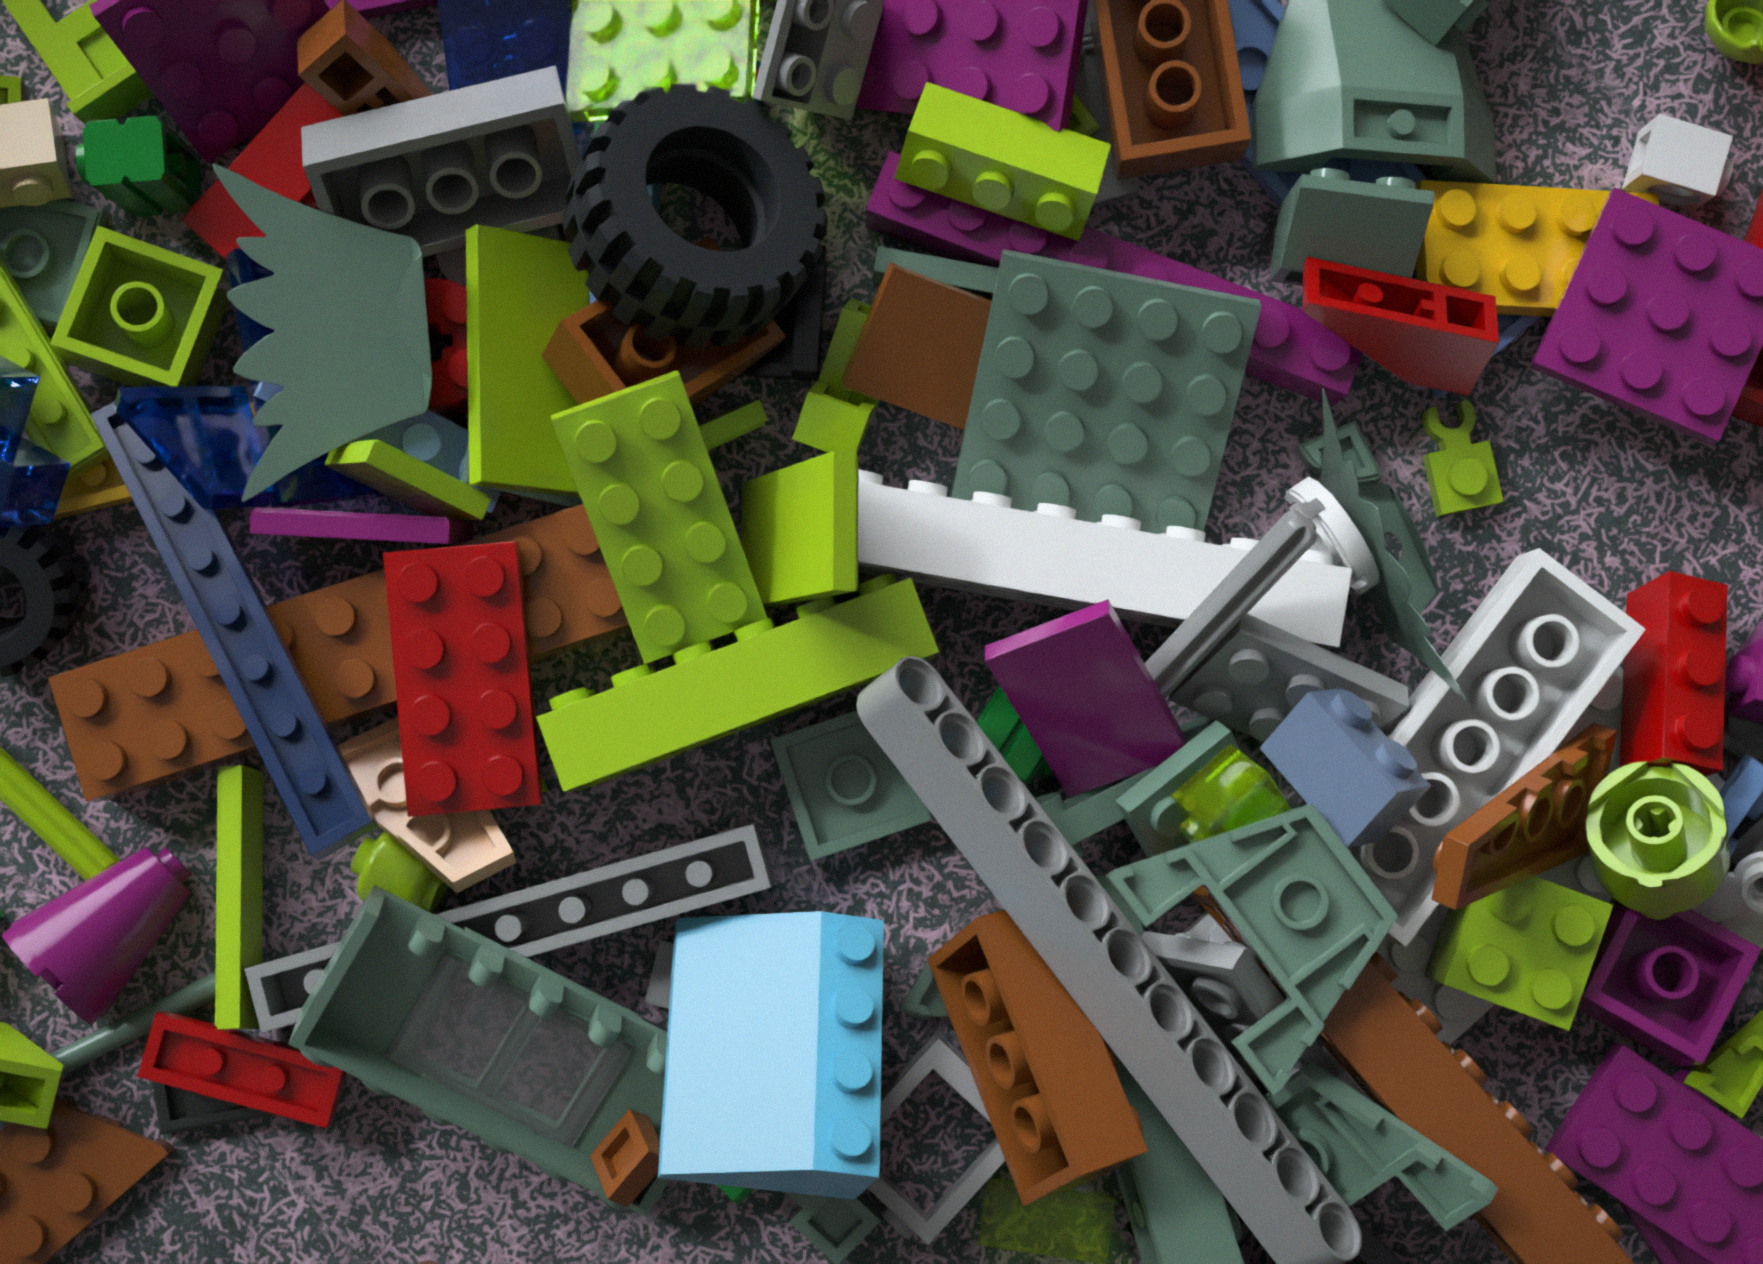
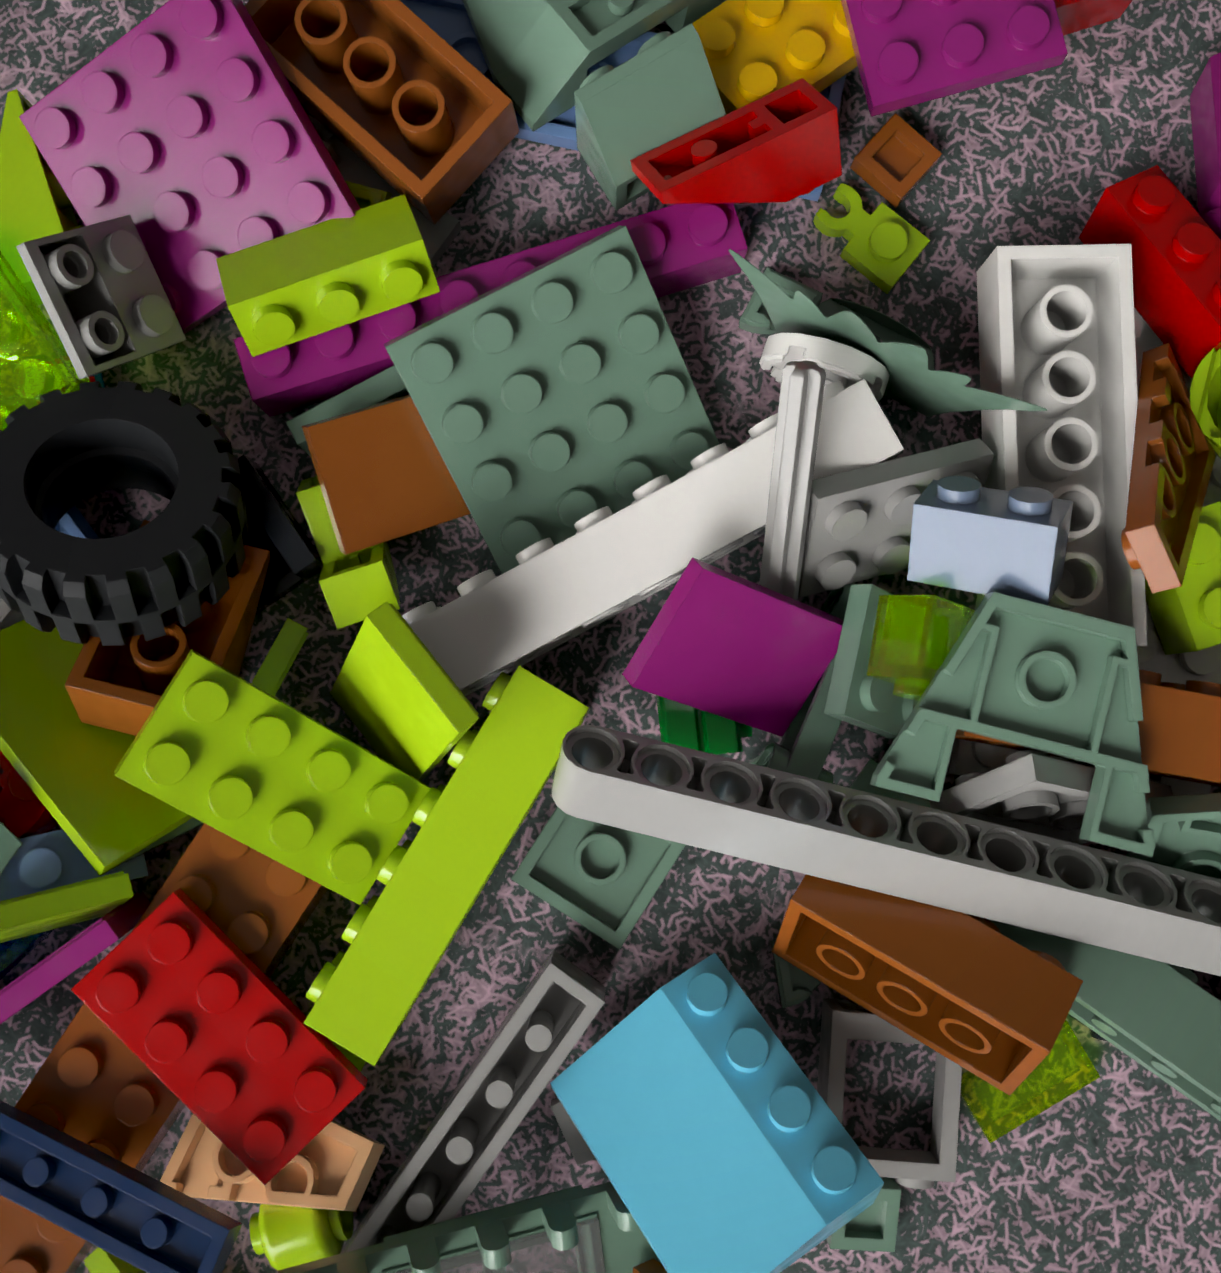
camera: 40 degrees left, 0 degrees up
(1527, 416) = (895, 160): none -> dark orange plate

